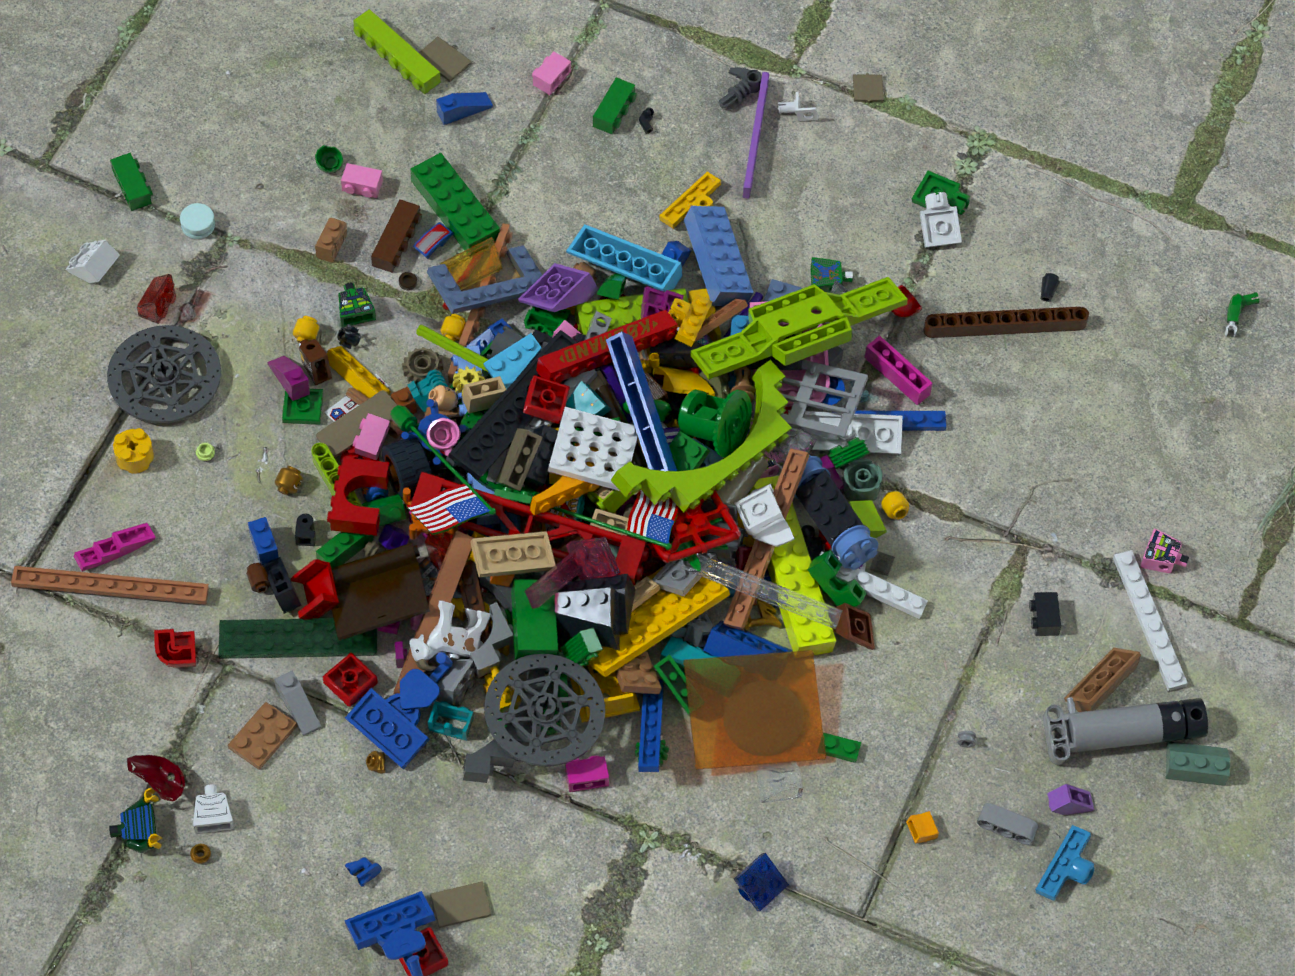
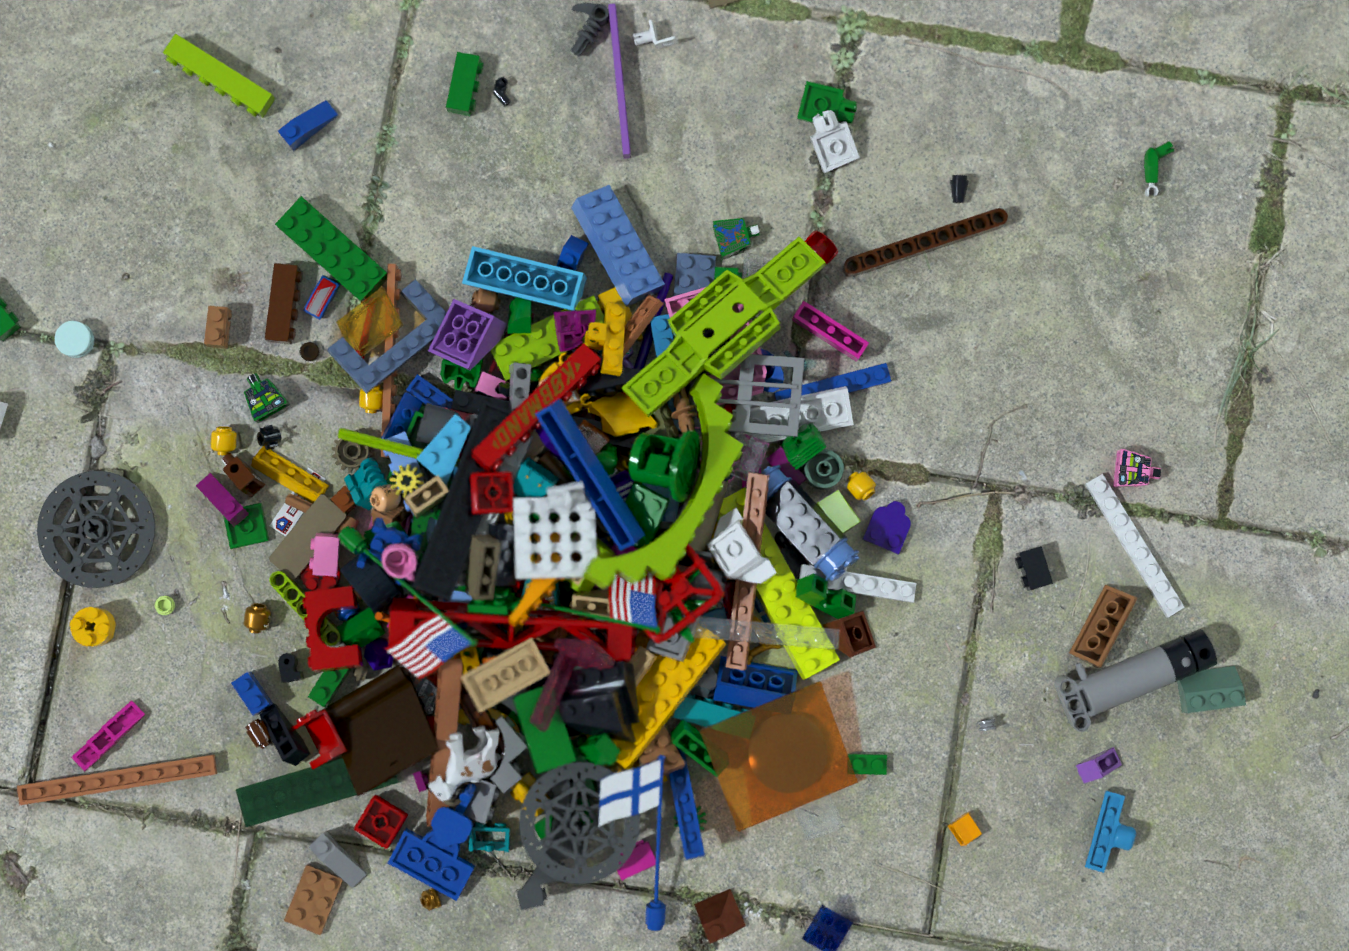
camera: 15 degrees left, 25 degrees up
(157, 299) = (62, 446): clear red slope -> none
(175, 648) = (203, 836): red brick -> none
(329, 159) = (187, 230): green hair -> none
(361, 180) = (228, 246): bright pink brick -> none
(445, 58) = (270, 69): dark tan piece -> none
(551, 73) = (387, 60): bright pink brick -> none
(602, 694) = (630, 794): none -> flag
(614, 413) = (565, 495): none -> white hips
(657, 847) = (719, 916): none -> copper slope
(694, 196) = (573, 180): yellow plate -> none
(882, 563) = (865, 553): clear smoke plate -> none
(913, 548) = (888, 527): none -> dark purple plate
(1007, 824) = (1044, 805): light grey beam -> none

